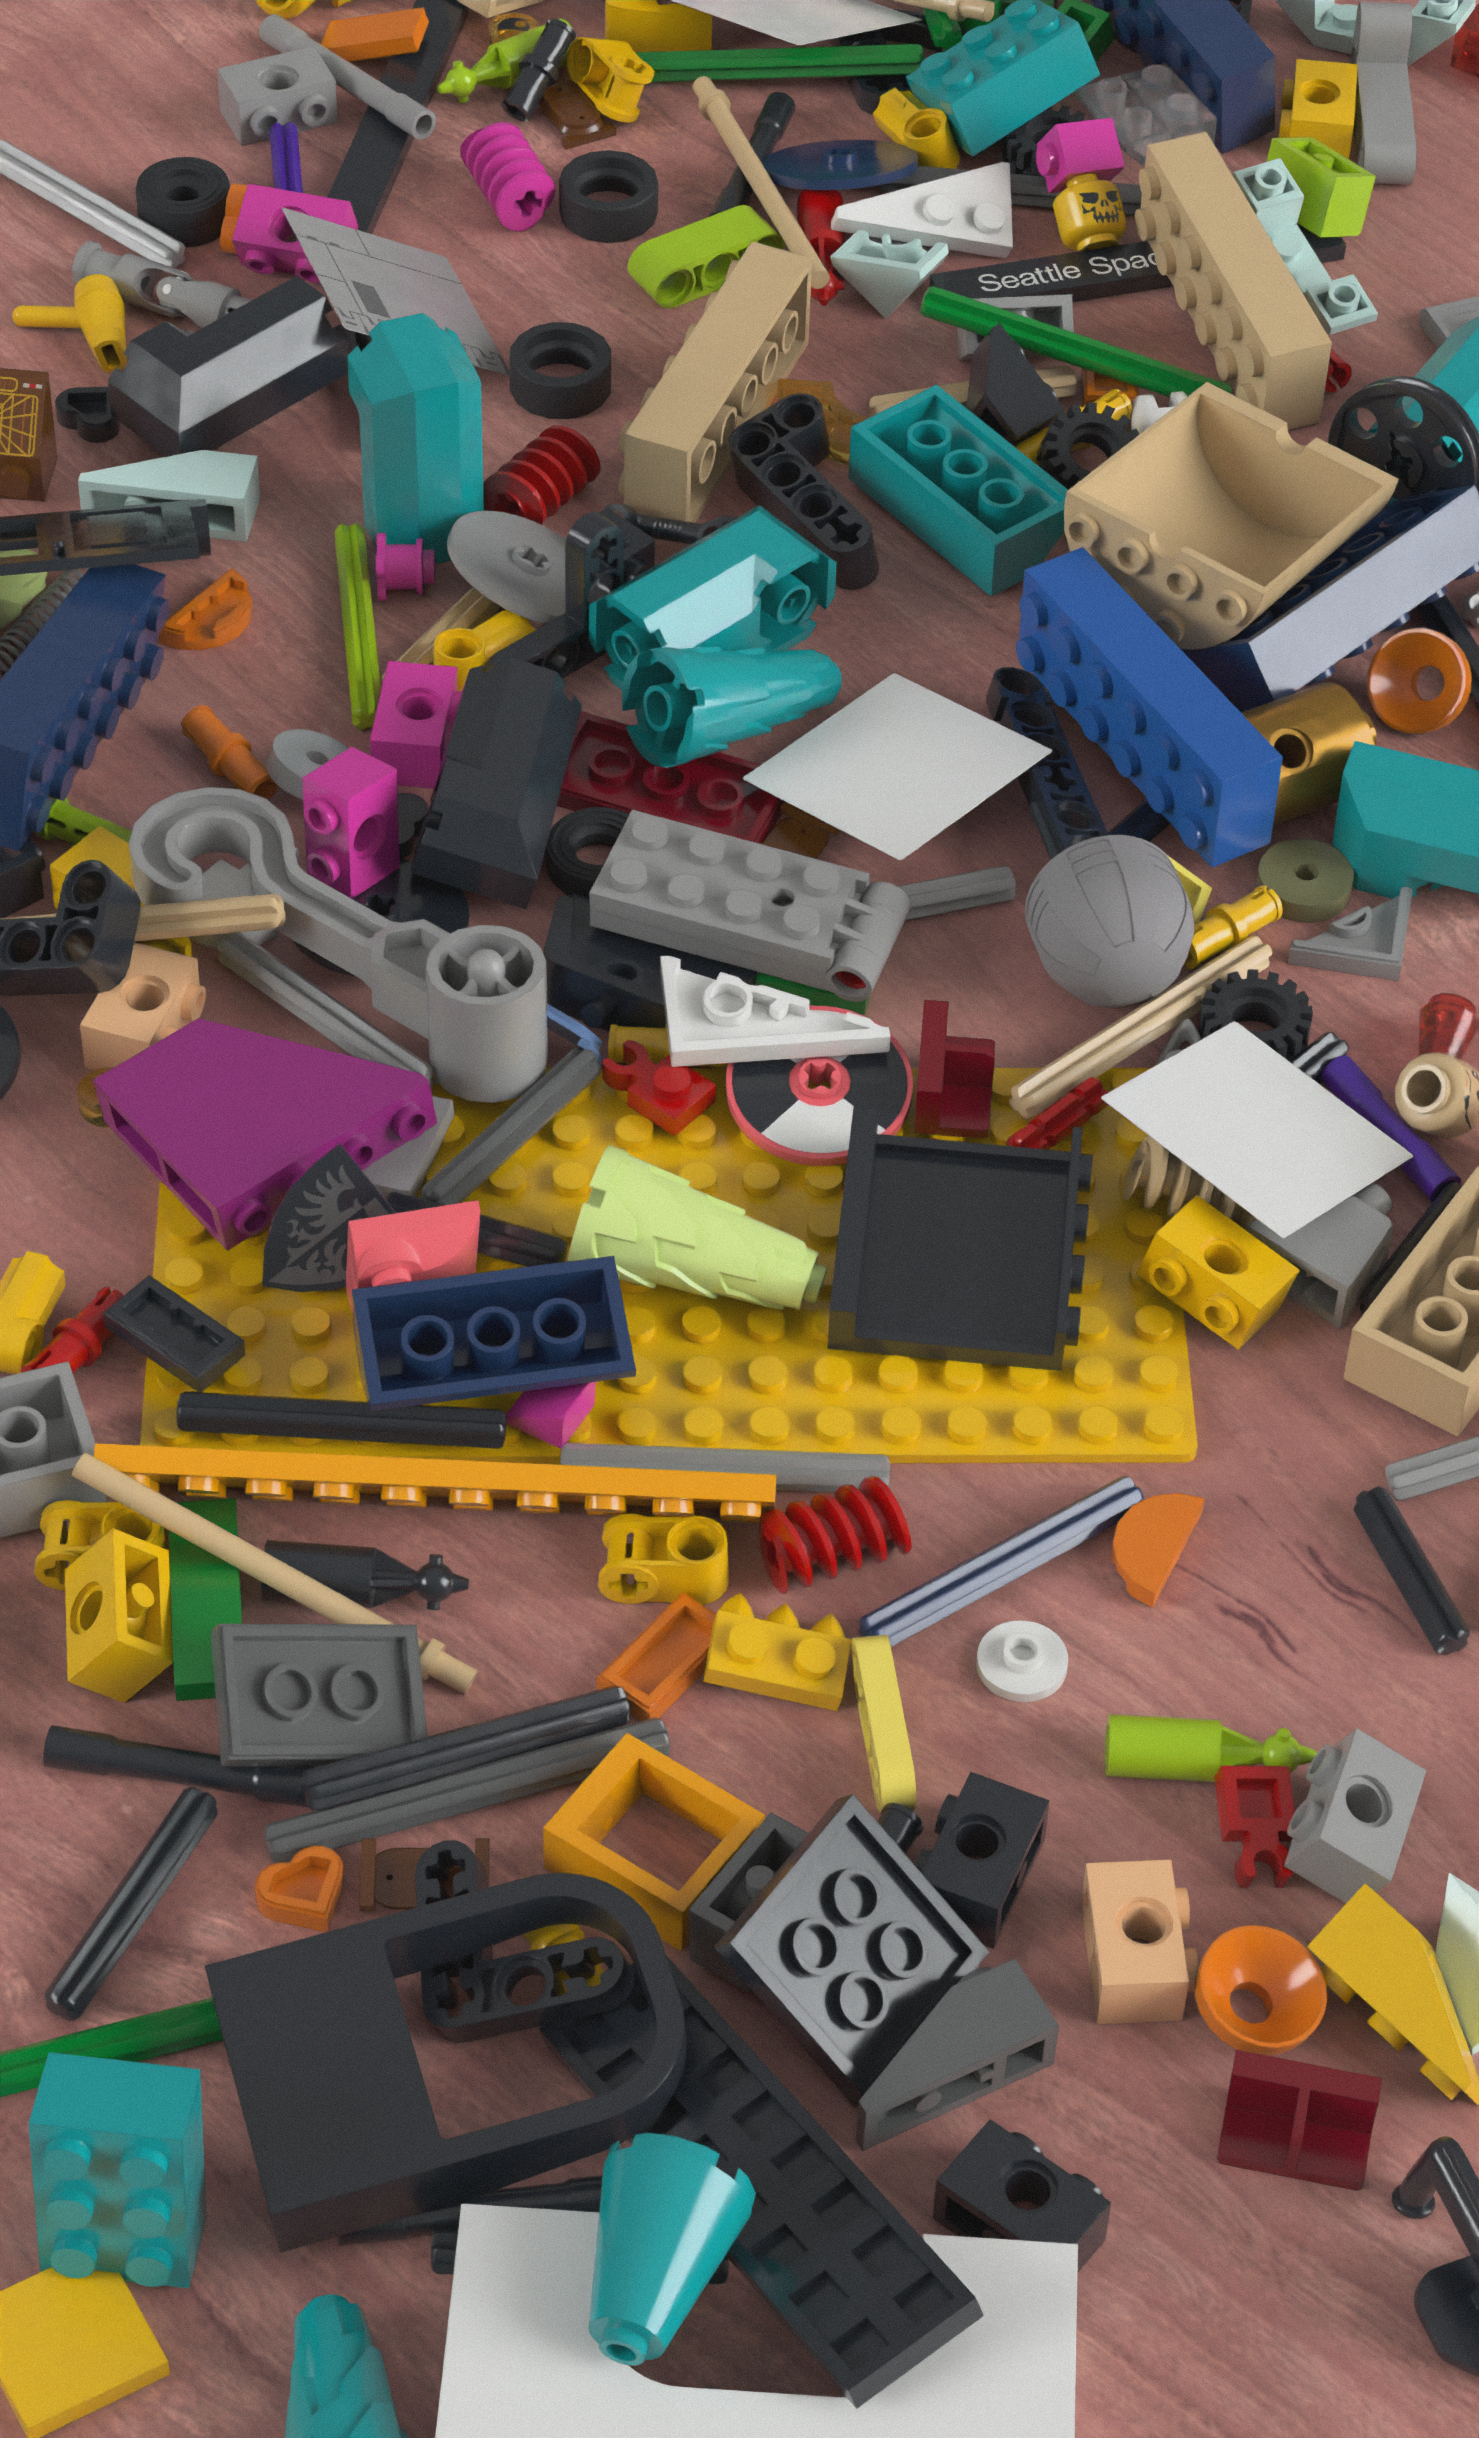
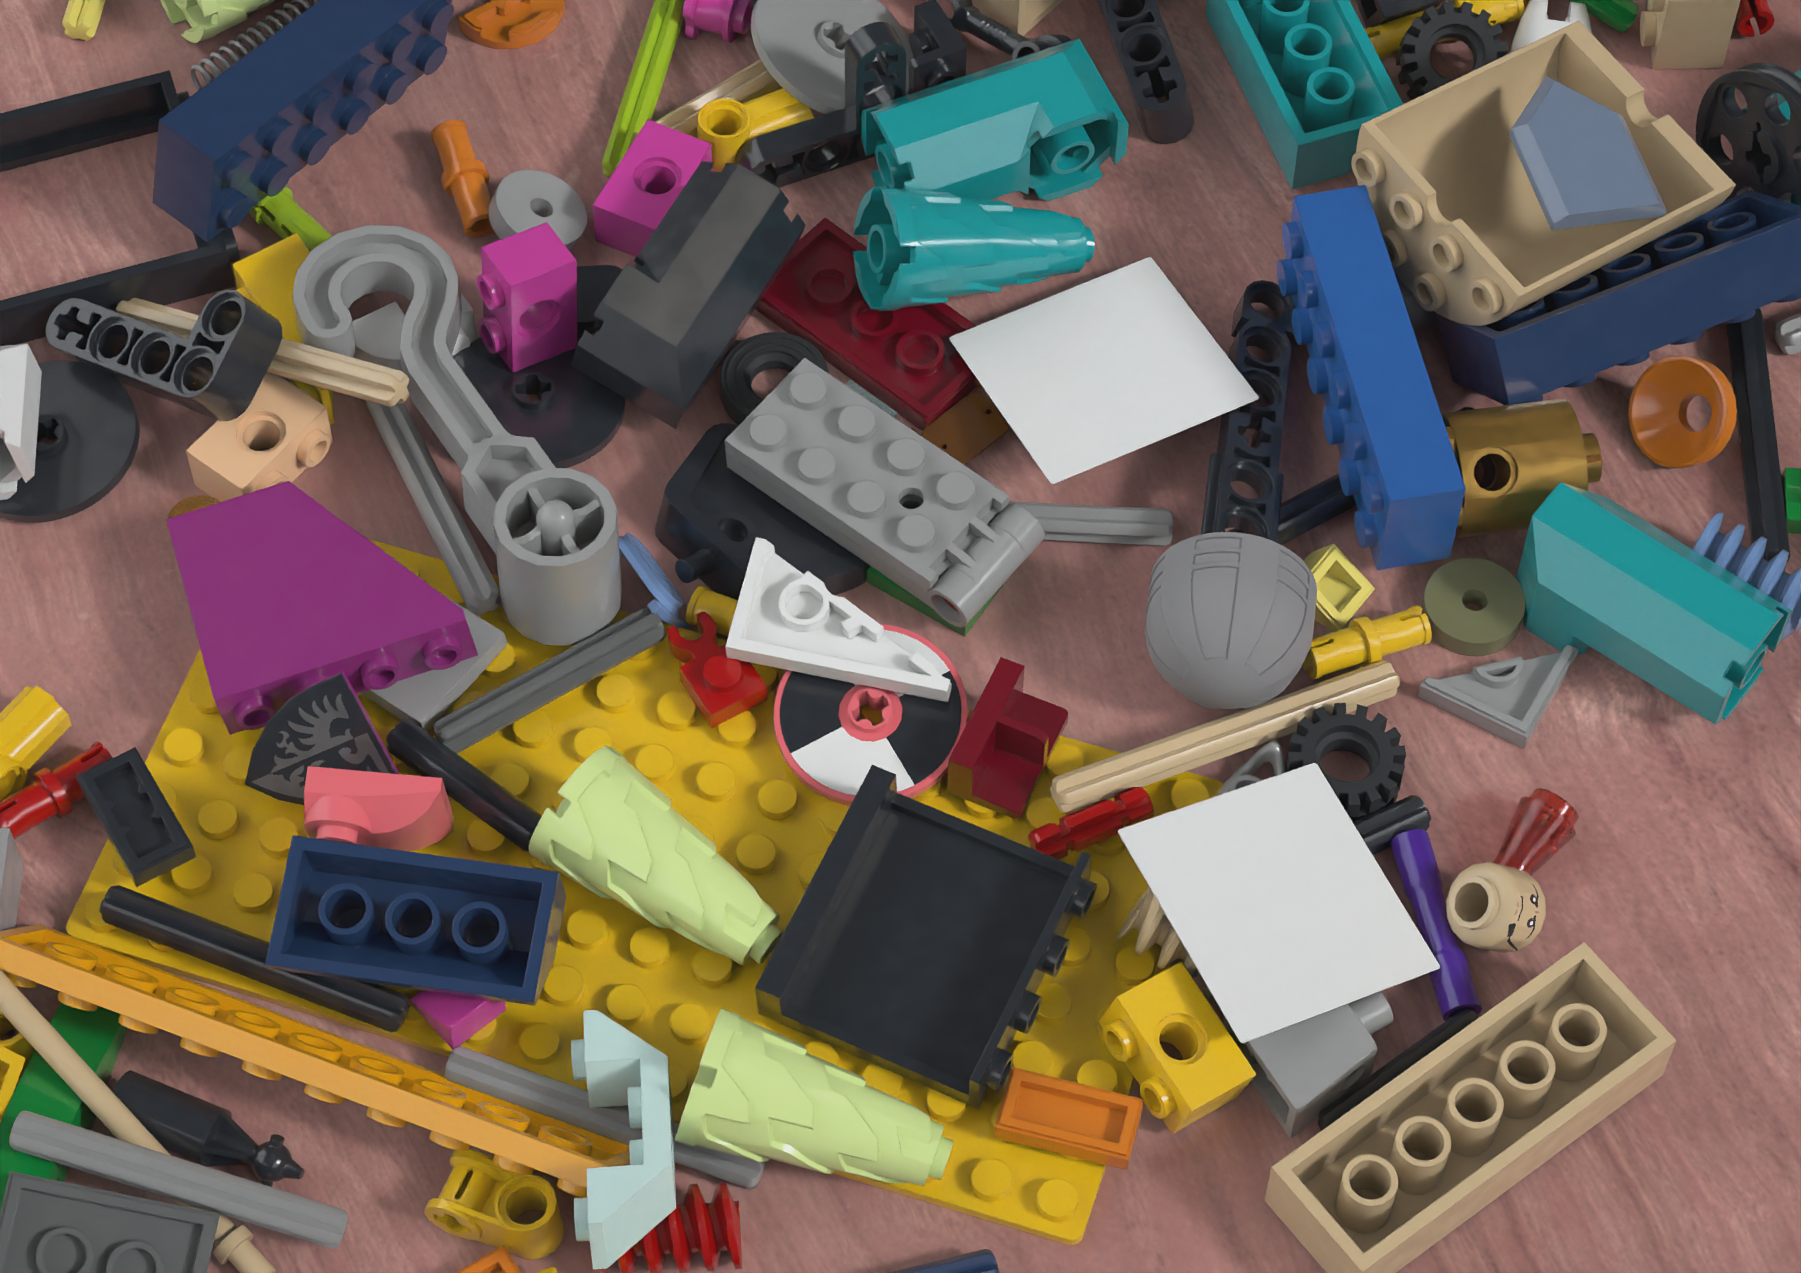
camera: 20 degrees right, 10 degrees up
(364, 1605) = (178, 1179): none -> light grey axle
(746, 1408) = (632, 1198): none -> light aqua slope
(892, 1395) = (776, 1102): none -> yellowish green cone
(1147, 1353) = (1069, 1118): none -> orange tile
(1264, 483) = (1582, 160): none -> sand blue tile

